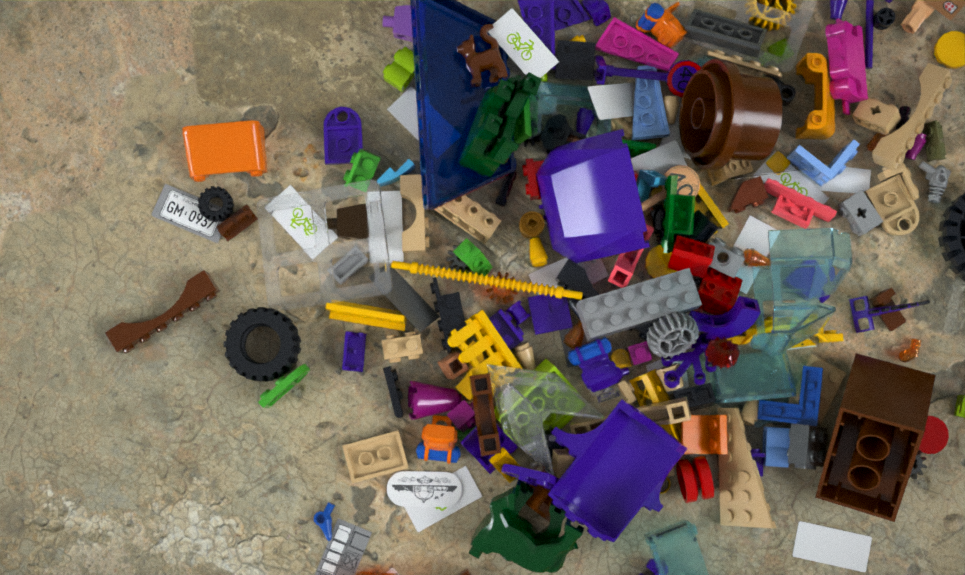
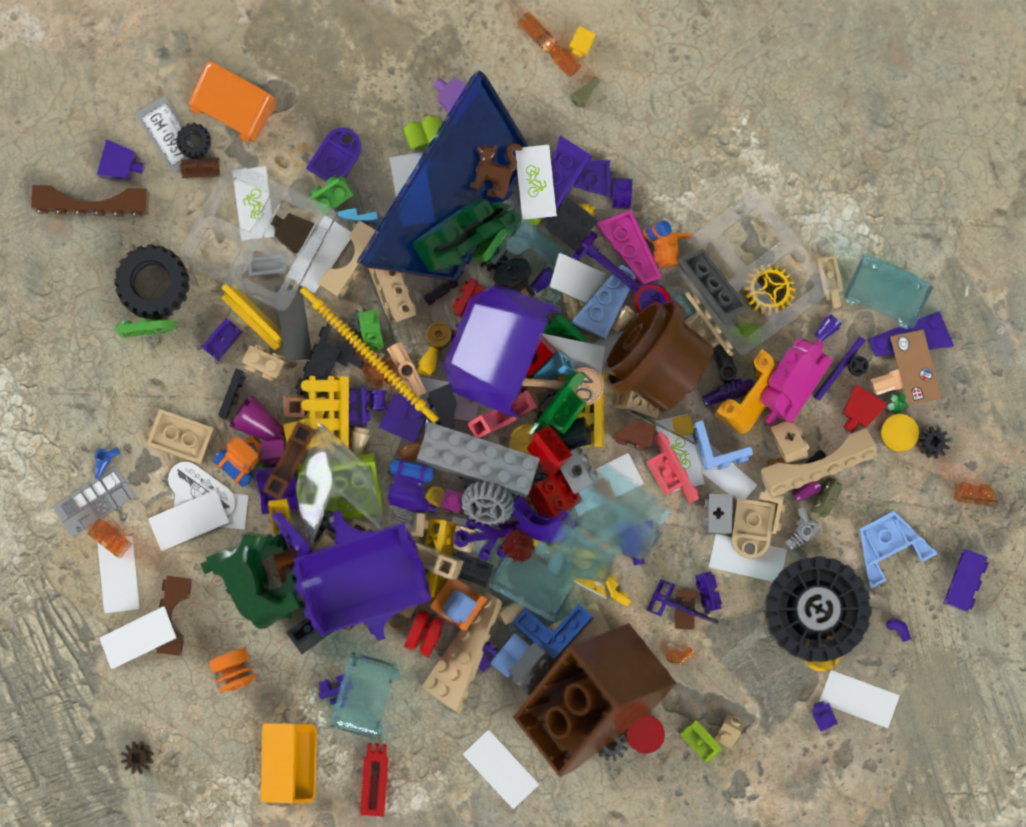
camera: 35 degrees right, 0 degrees up
(165, 264) = (118, 162): none -> dark purple torso
(430, 521) = (188, 520): none -> white sticker
(467, 294) = (346, 356): none -> black plate
(513, 266) = (401, 359): none -> light nougat piece
(596, 551) = (305, 636): none -> black brick
(709, 437) = (458, 606): none -> medium blue brick
(796, 109) = (728, 391): none -> dark purple hinge
(889, 246) = (763, 567): none -> white sticker
(889, 278) = (705, 583): none -> dark purple hinge
(911, 50) = (861, 408): none -> red torso
(935, 27) = (897, 403): none -> green plant

